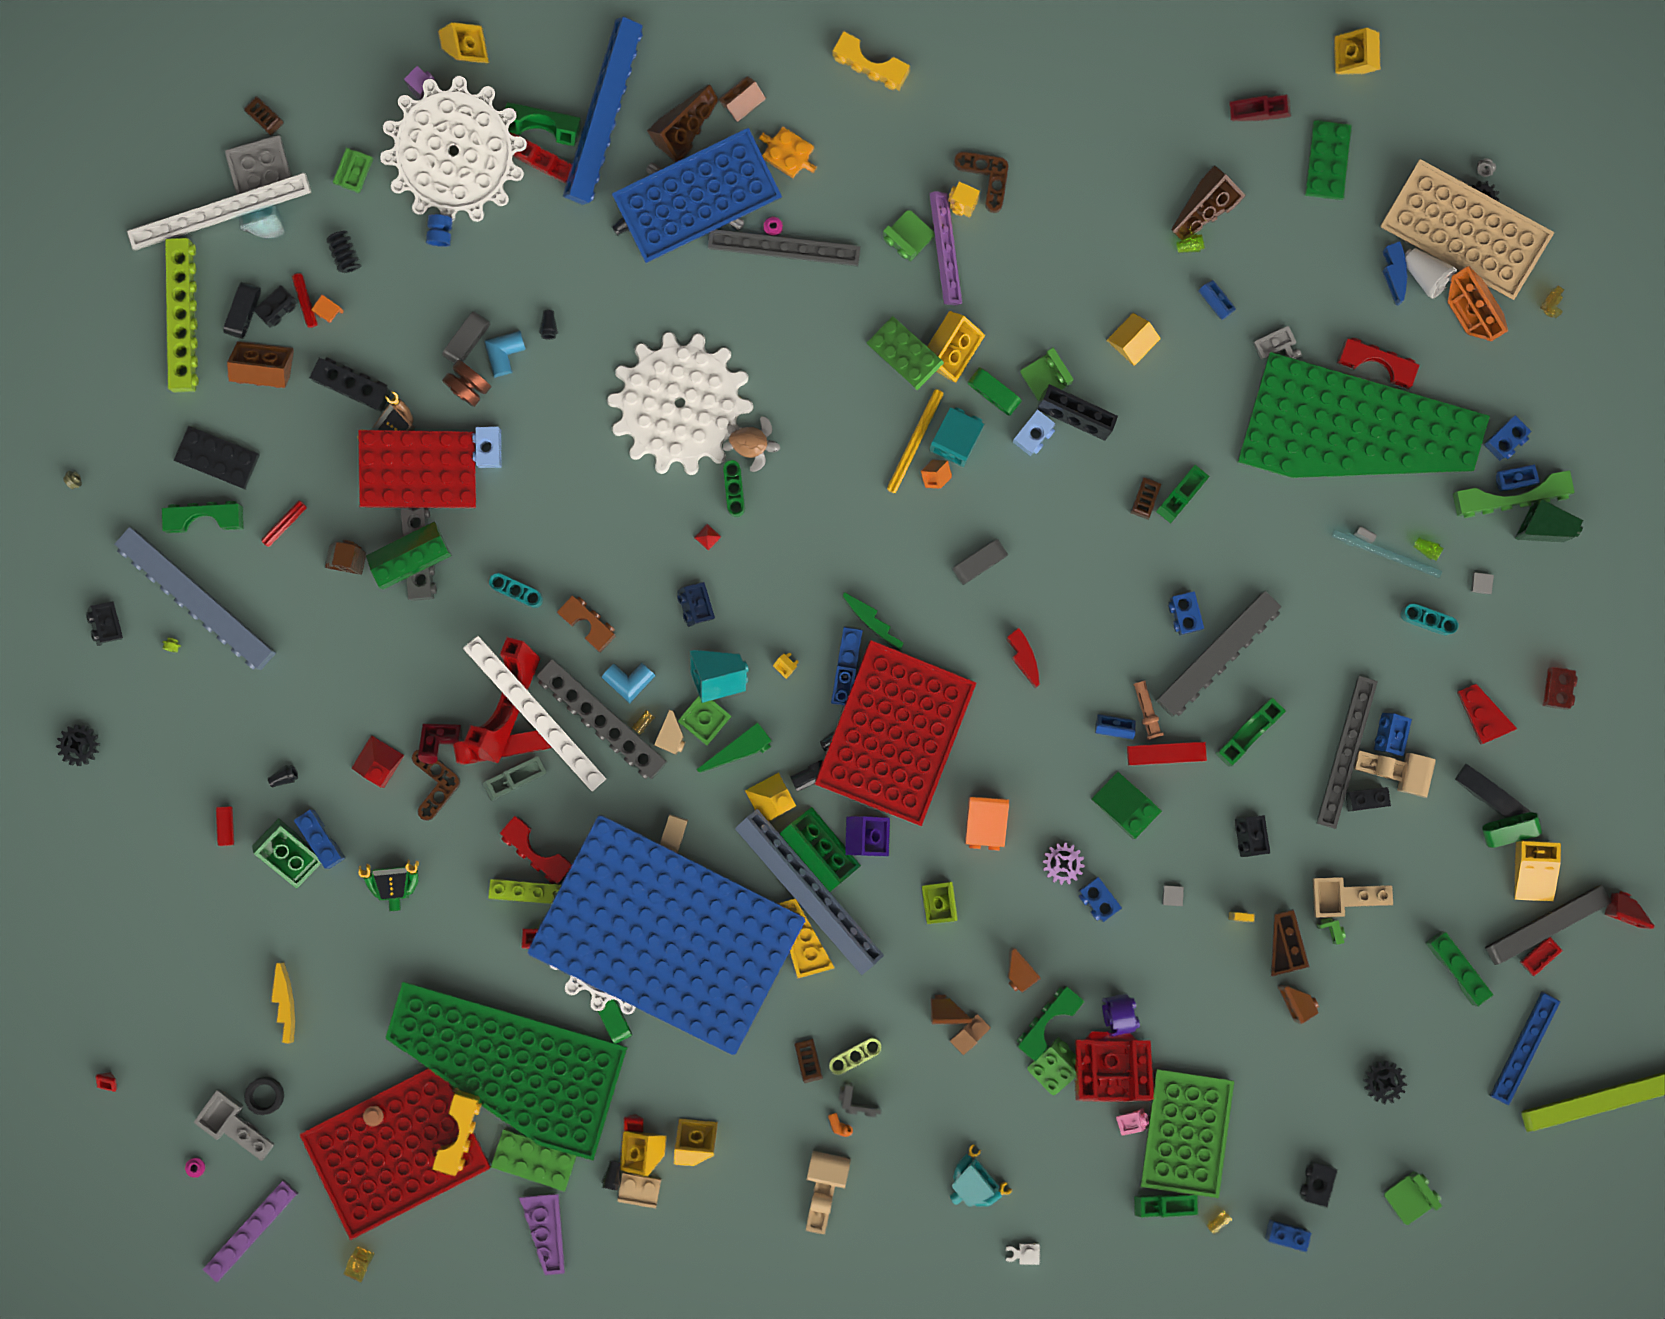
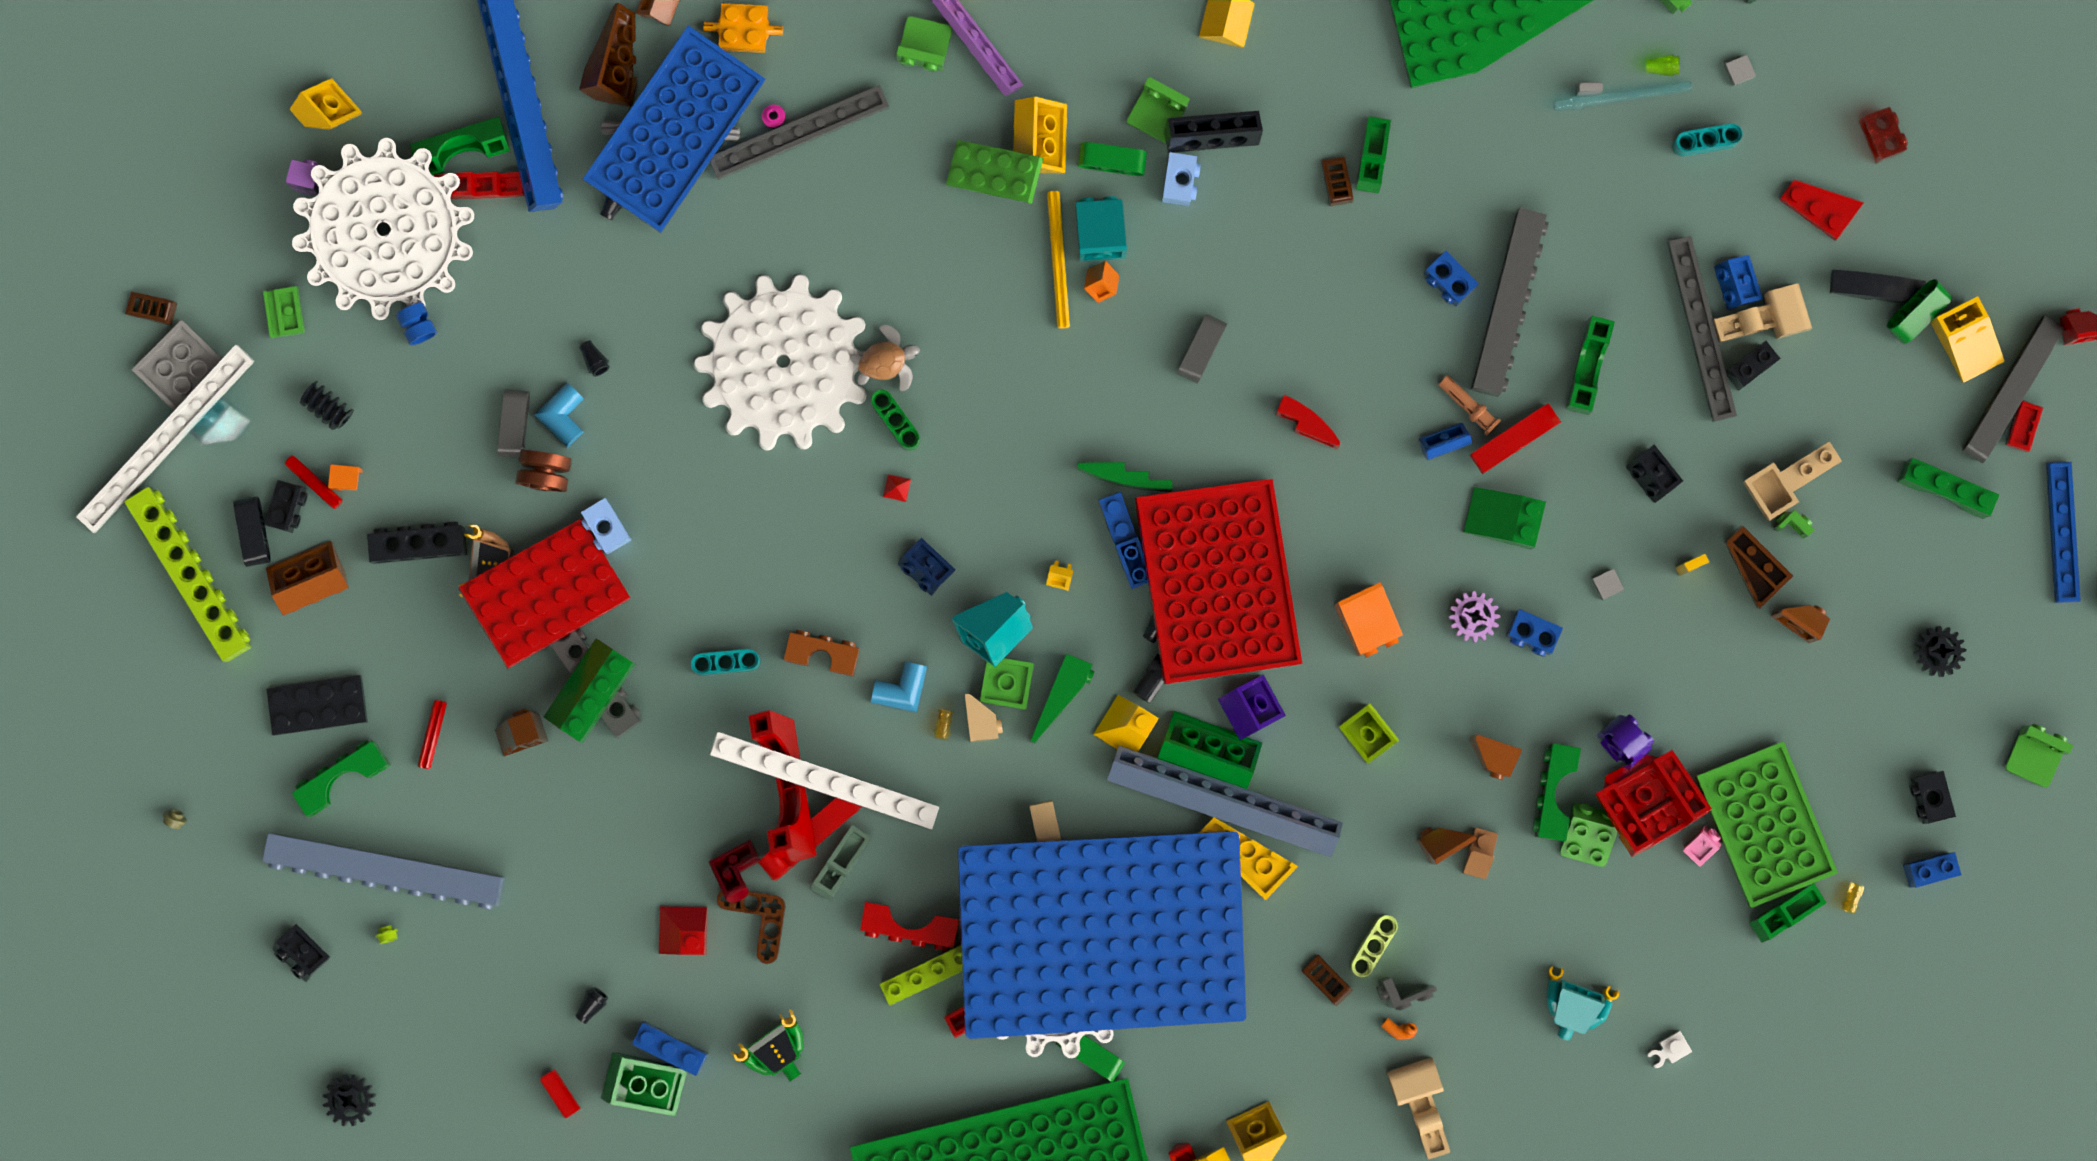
camera: 40 degrees left, 0 degrees up
(553, 671) = (816, 724): dark grey brick -> none

